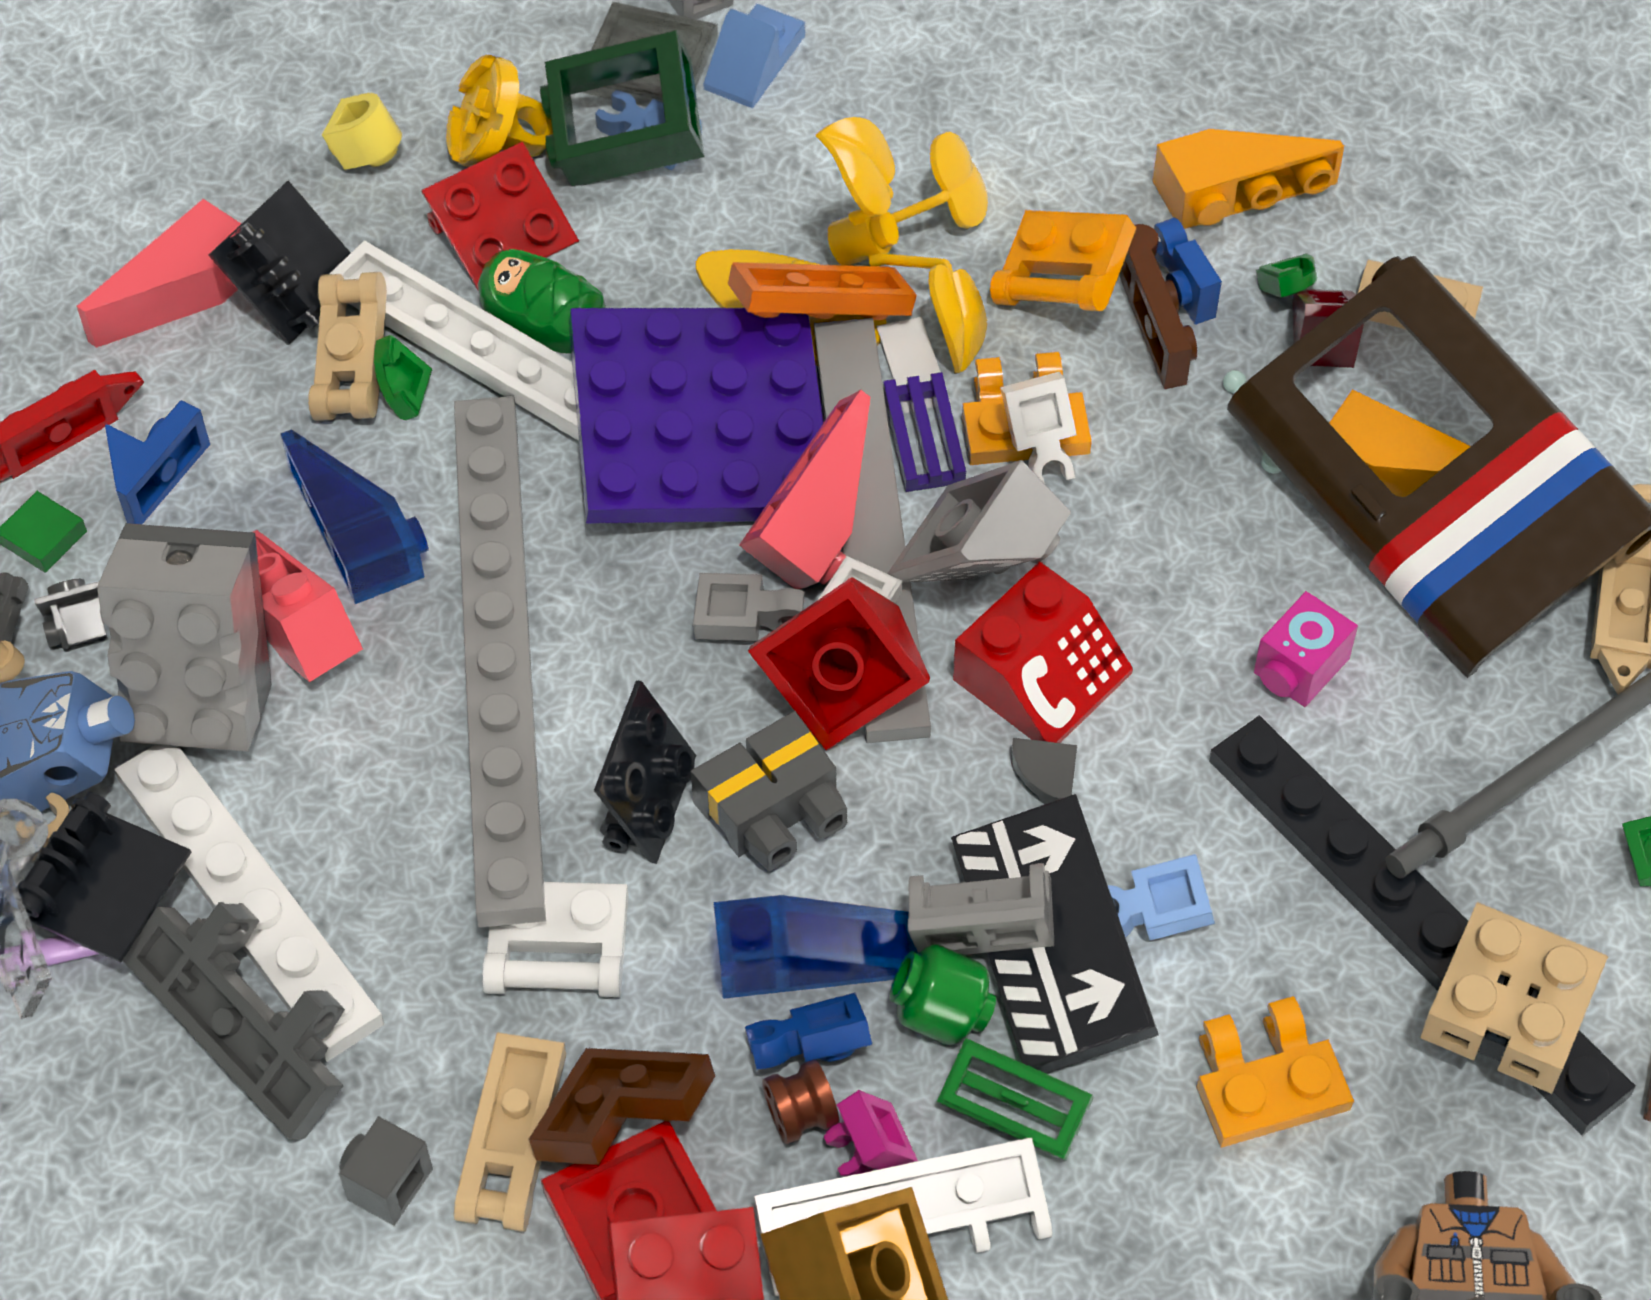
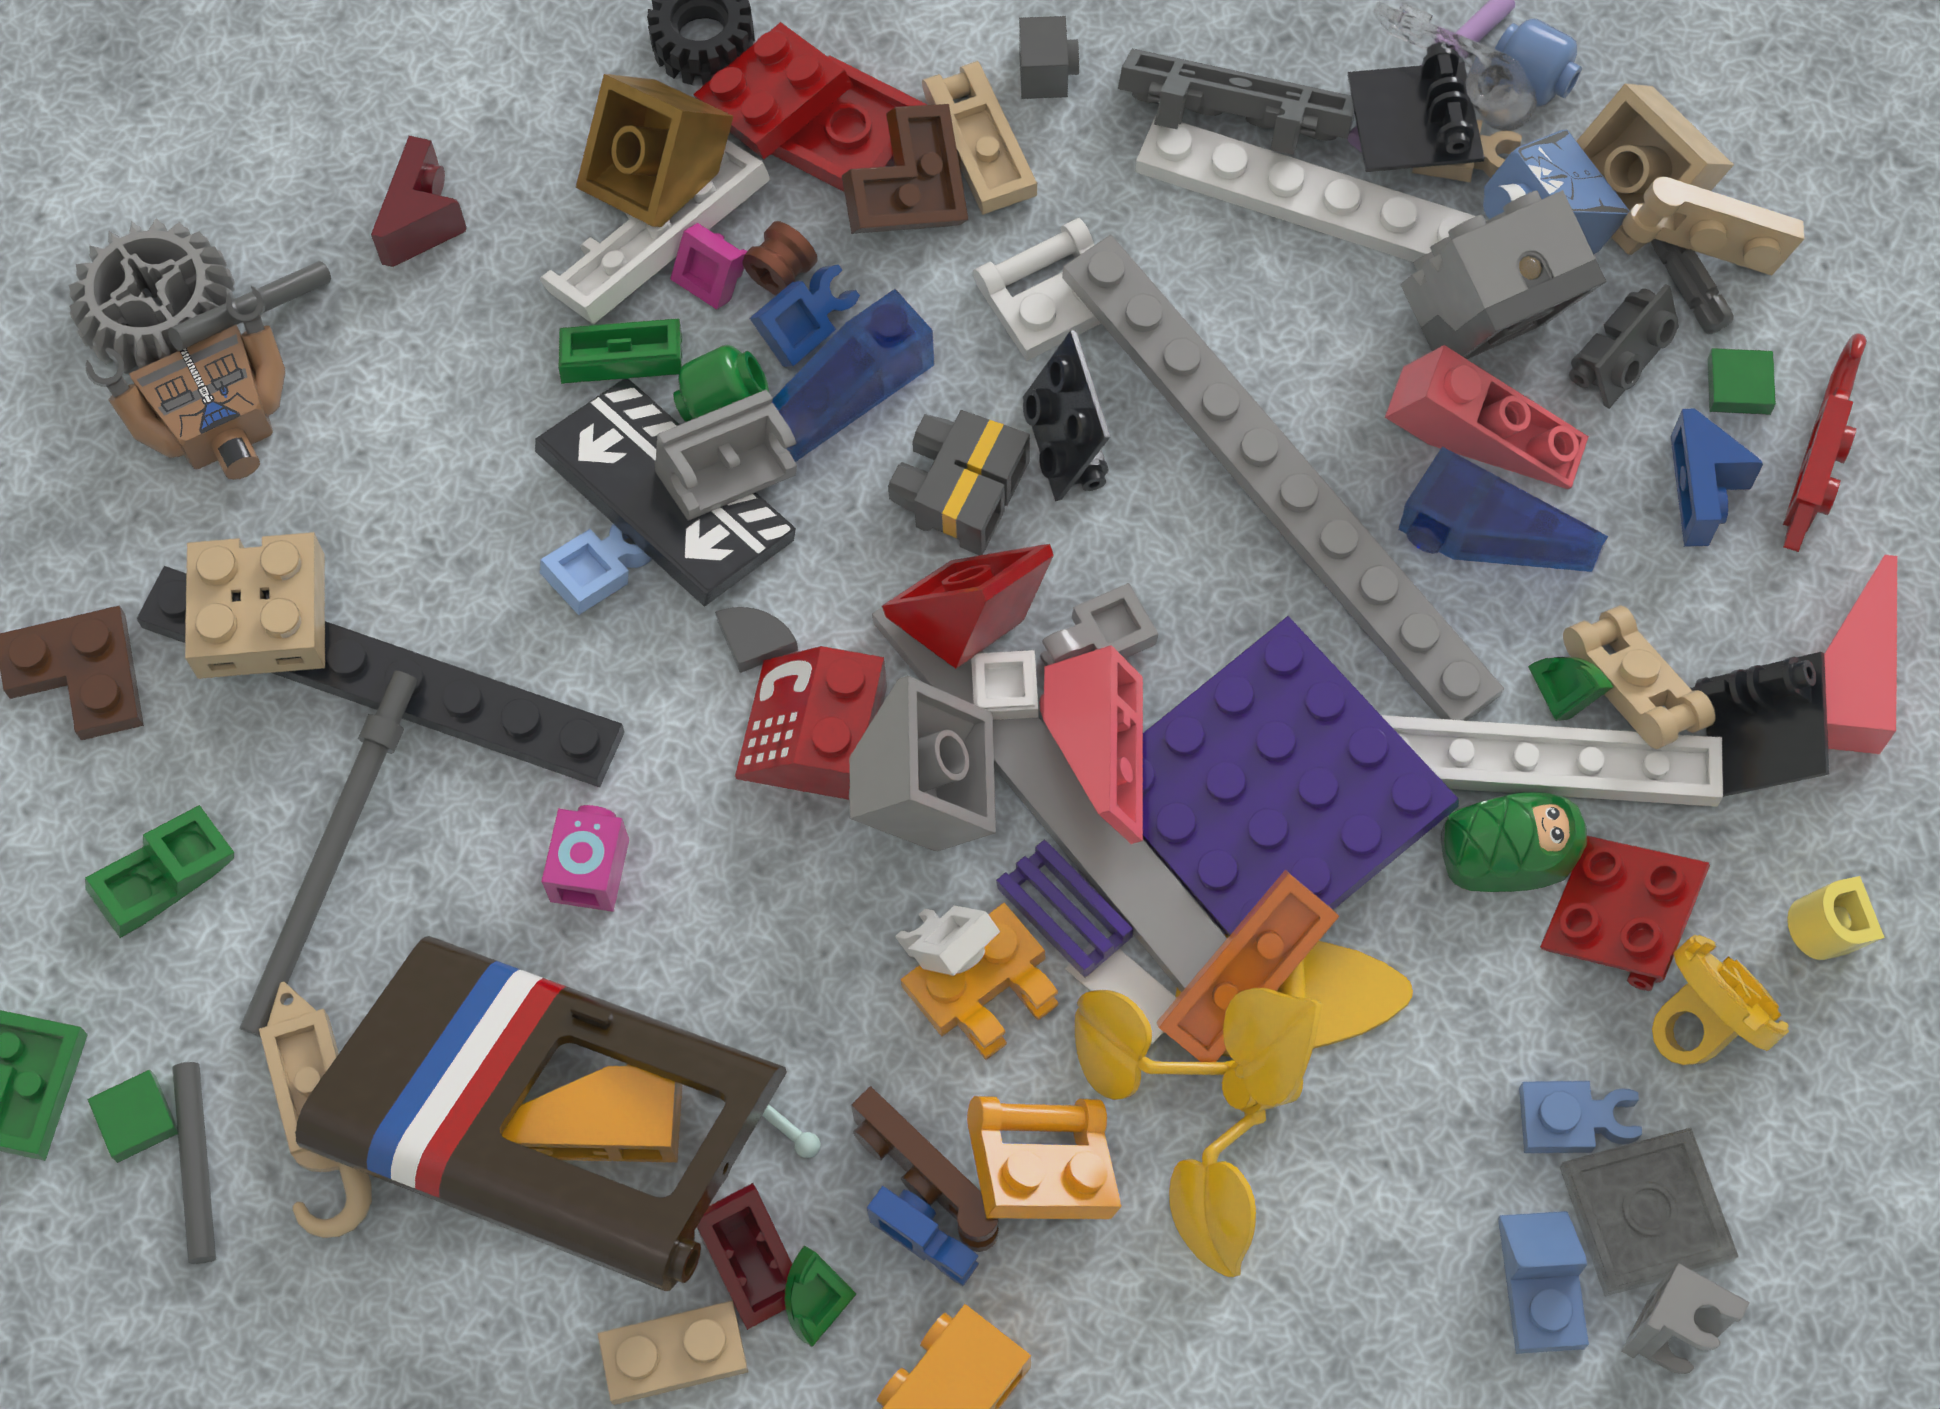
camera: 150 degrees right, 10 degrees up
(633, 150) = (1558, 1116): dark green window -> none
(1273, 1091) = (426, 469): light orange plate -> none

